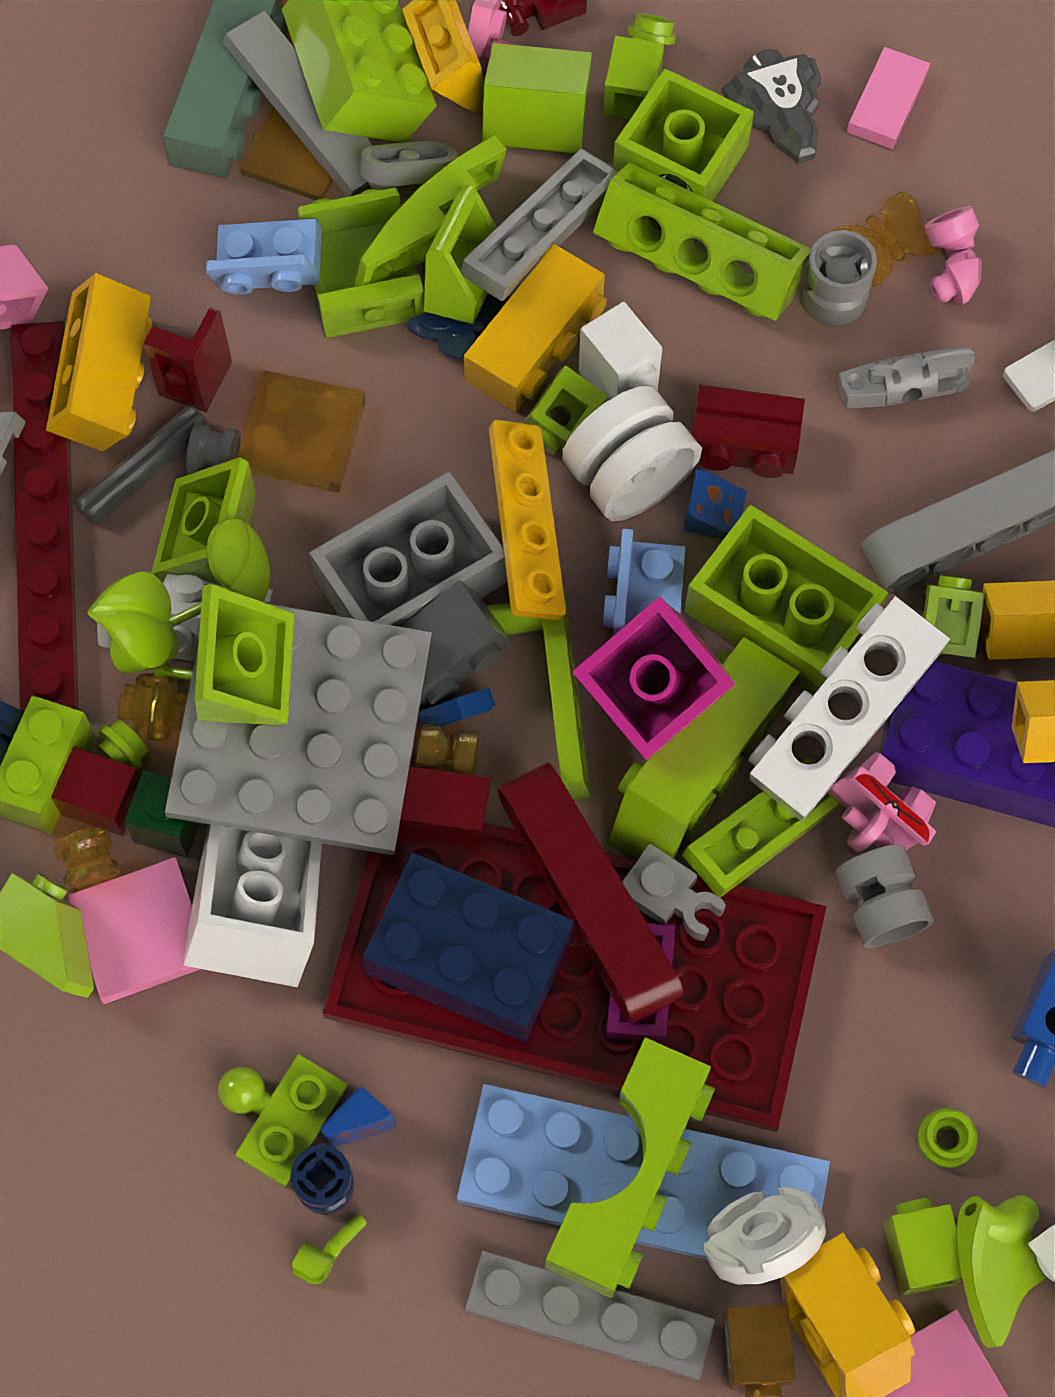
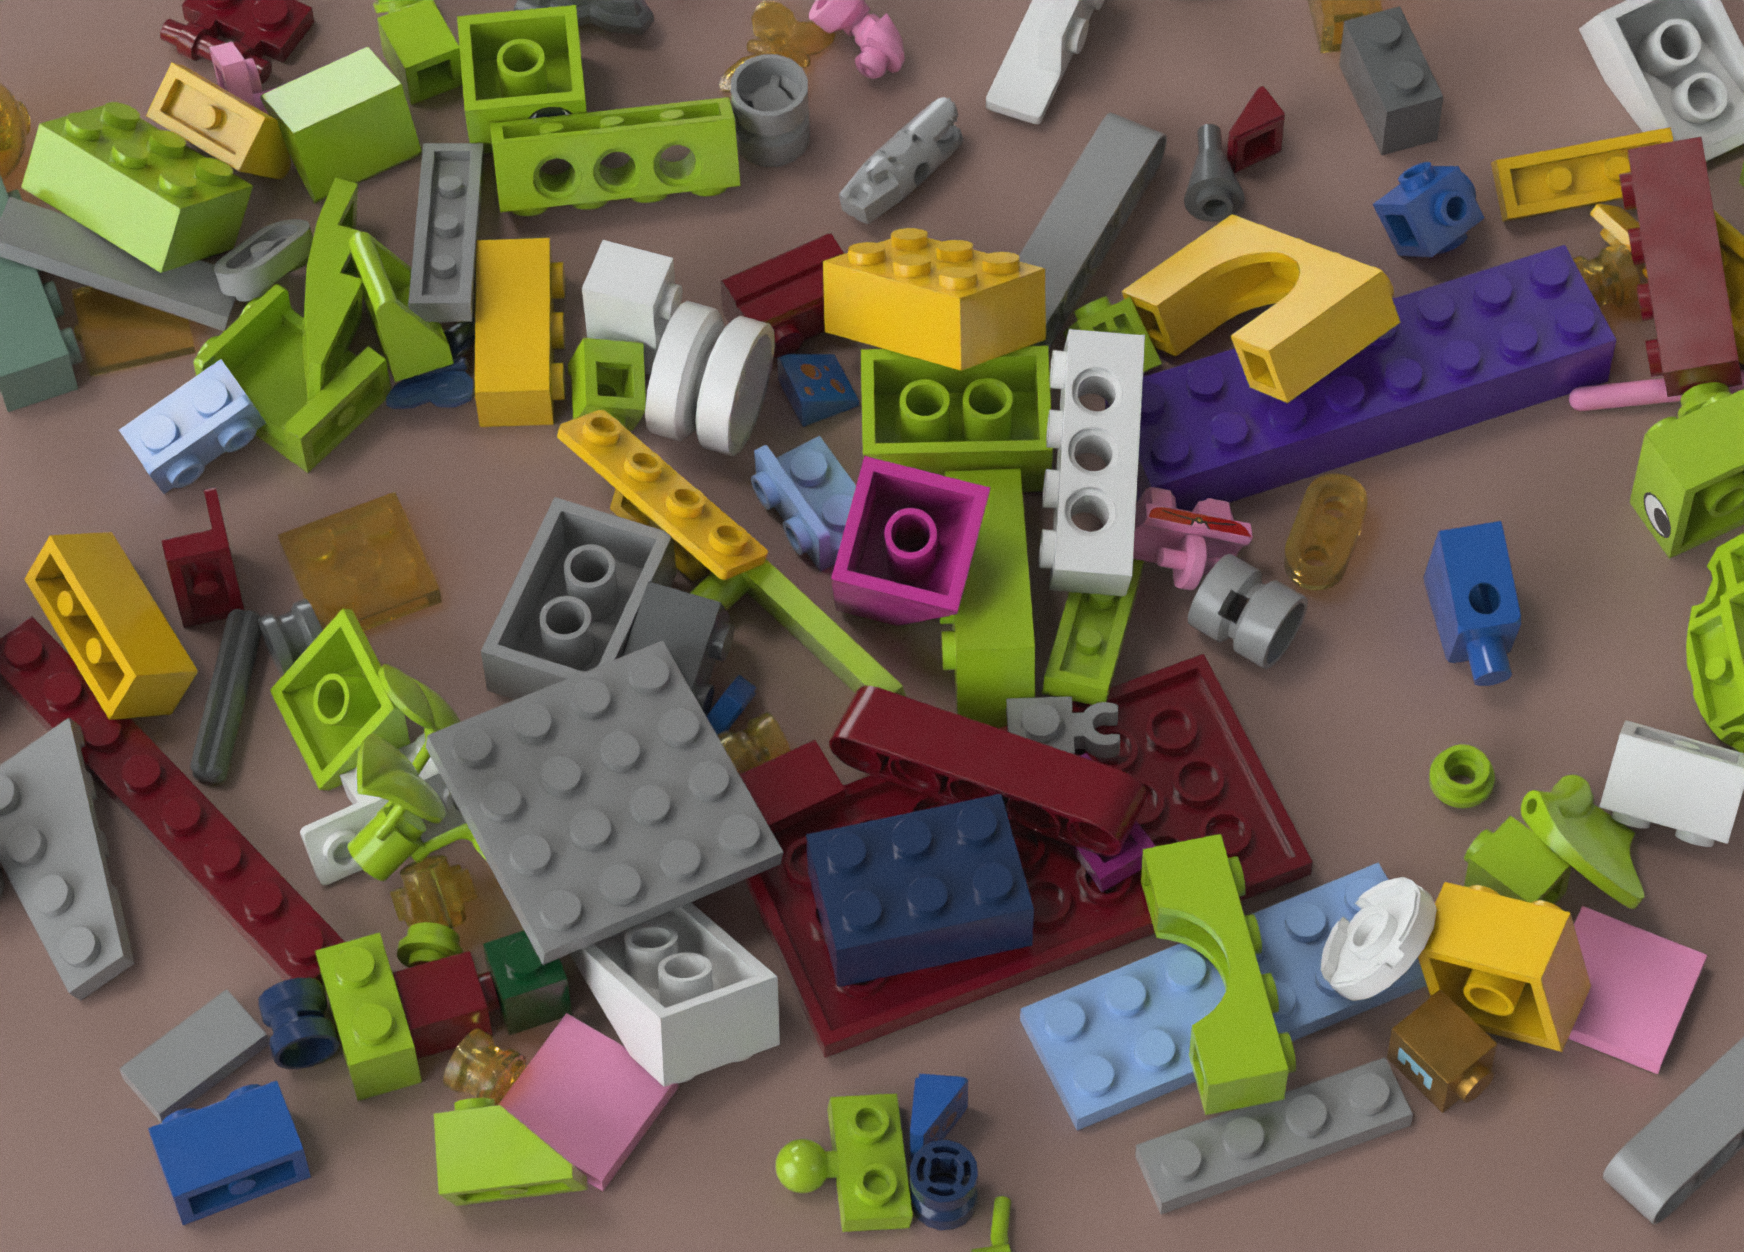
camera: 35 degrees left, 10 degrees down
(243, 659) = (513, 765): lime slope -> none
(831, 503) = (934, 299): none -> yellow brick
(992, 874) = (1323, 535): none -> clear yellow plate

